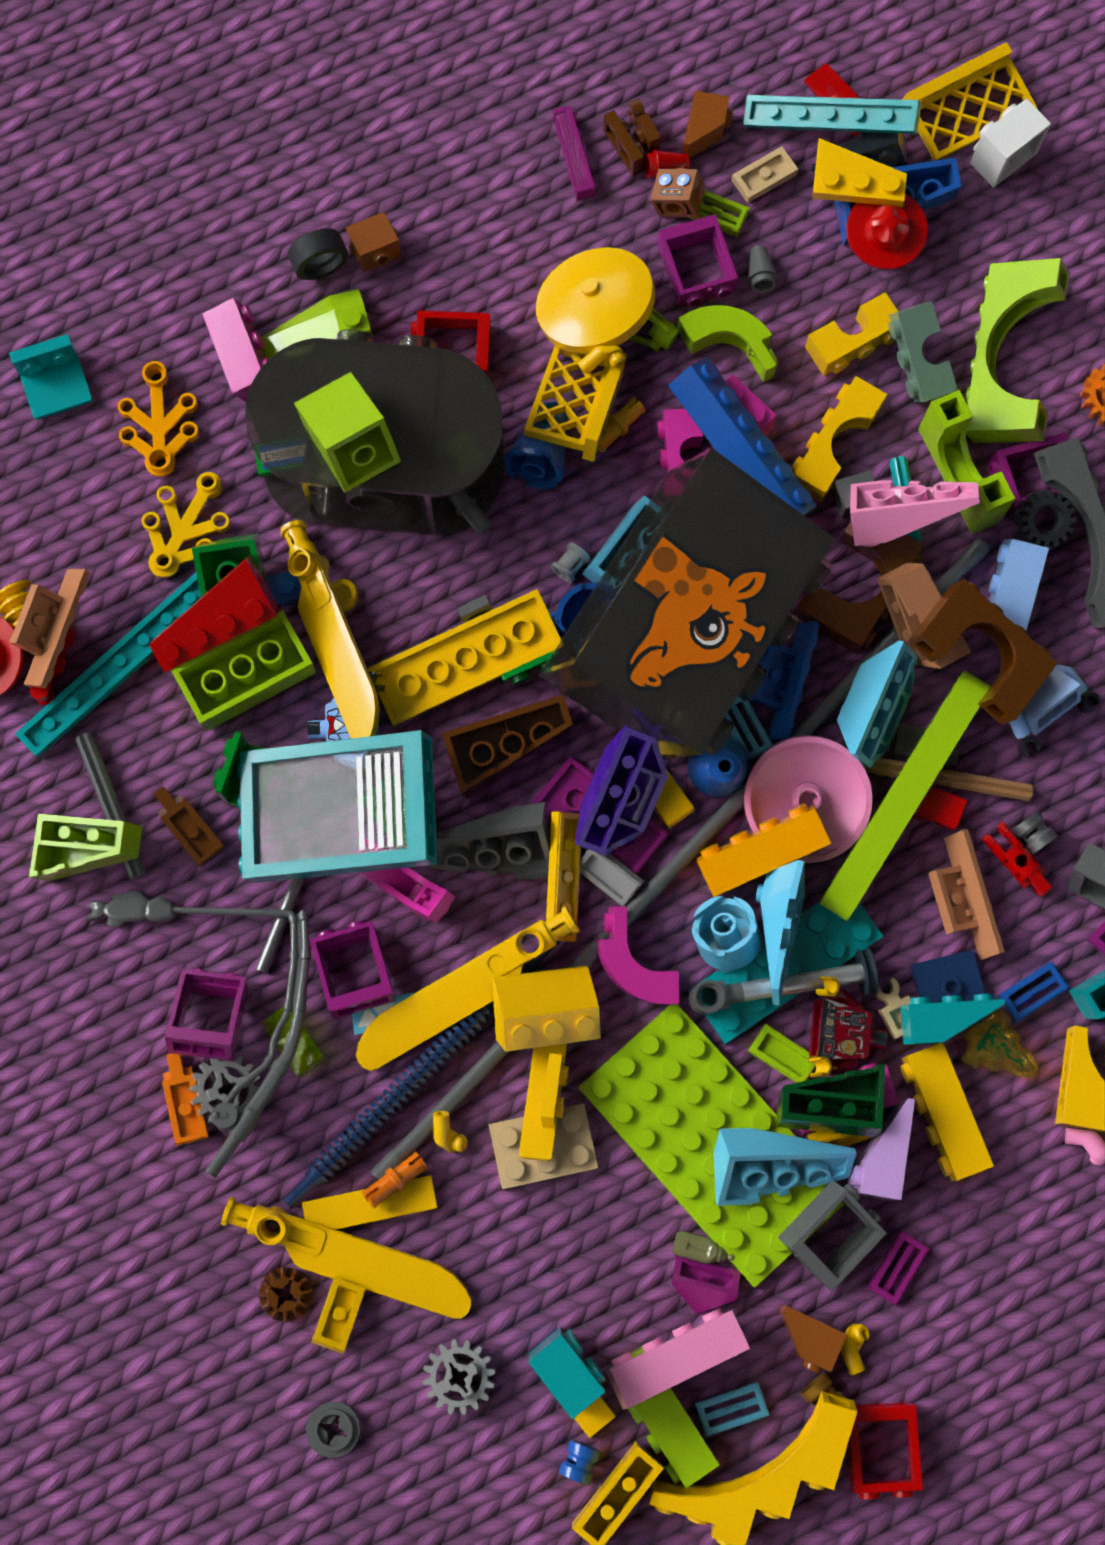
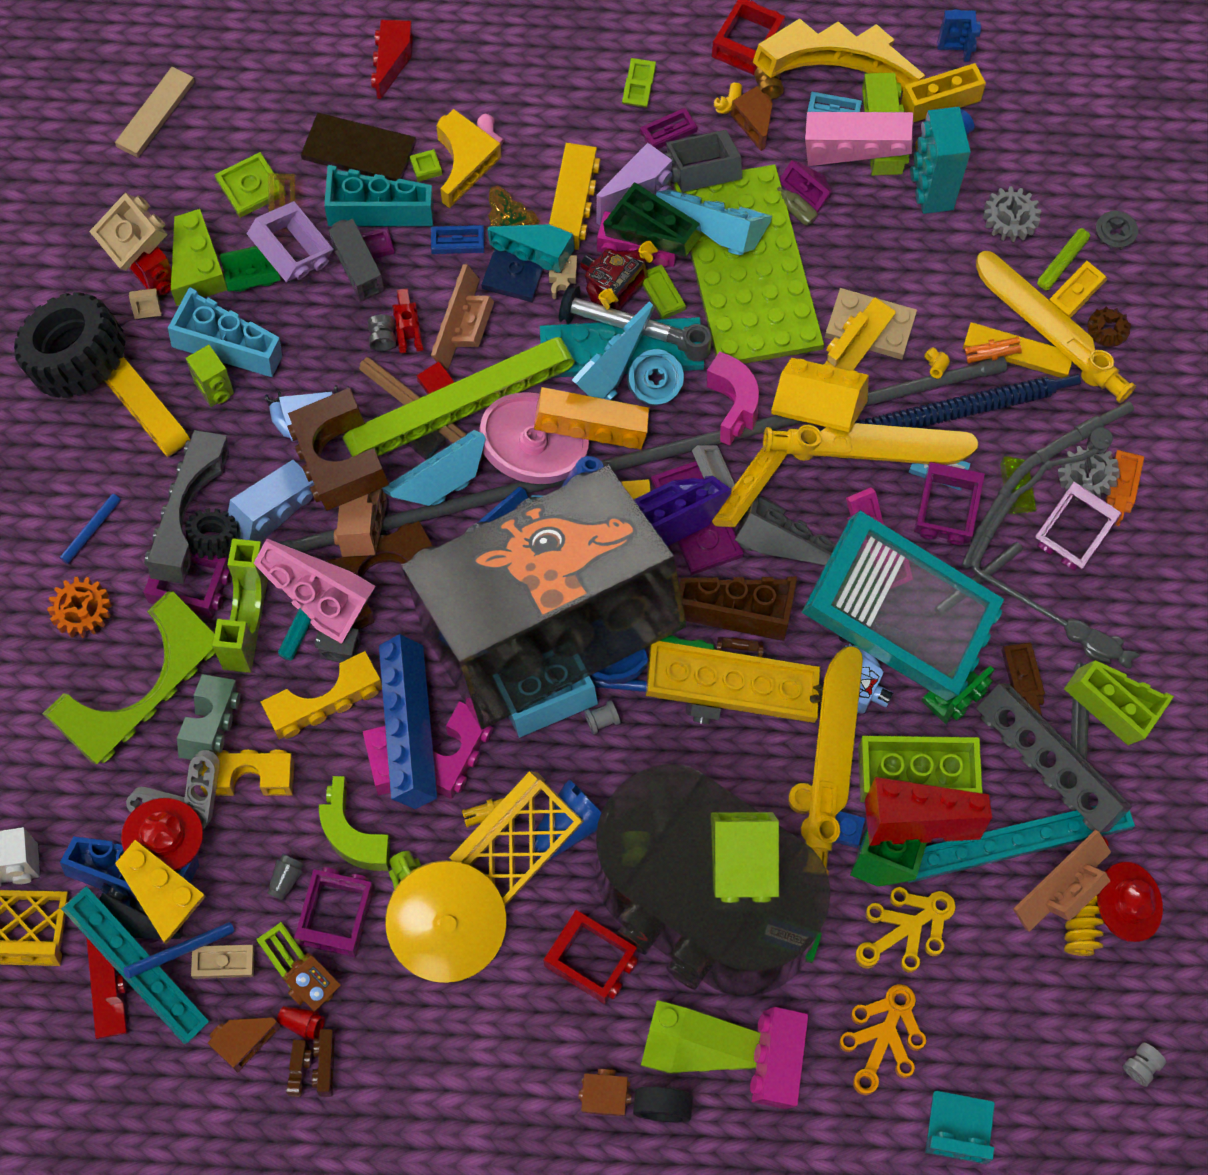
camera: 150 degrees left, 10 degrees down
(119, 748) = (1111, 803): none -> dark grey brick
(374, 1354) = (1063, 259): none -> lime axle
(483, 710) = (740, 644): none -> reddish brown piece
(574, 152) = (373, 1083): magenta piece -> none
(599, 354) = (476, 860): yellow arm -> none
(804, 150) = (178, 950): none -> blue bar
(885, 285) = (201, 805): none -> light grey beam
(966, 1309) = (639, 82): none -> lime slope

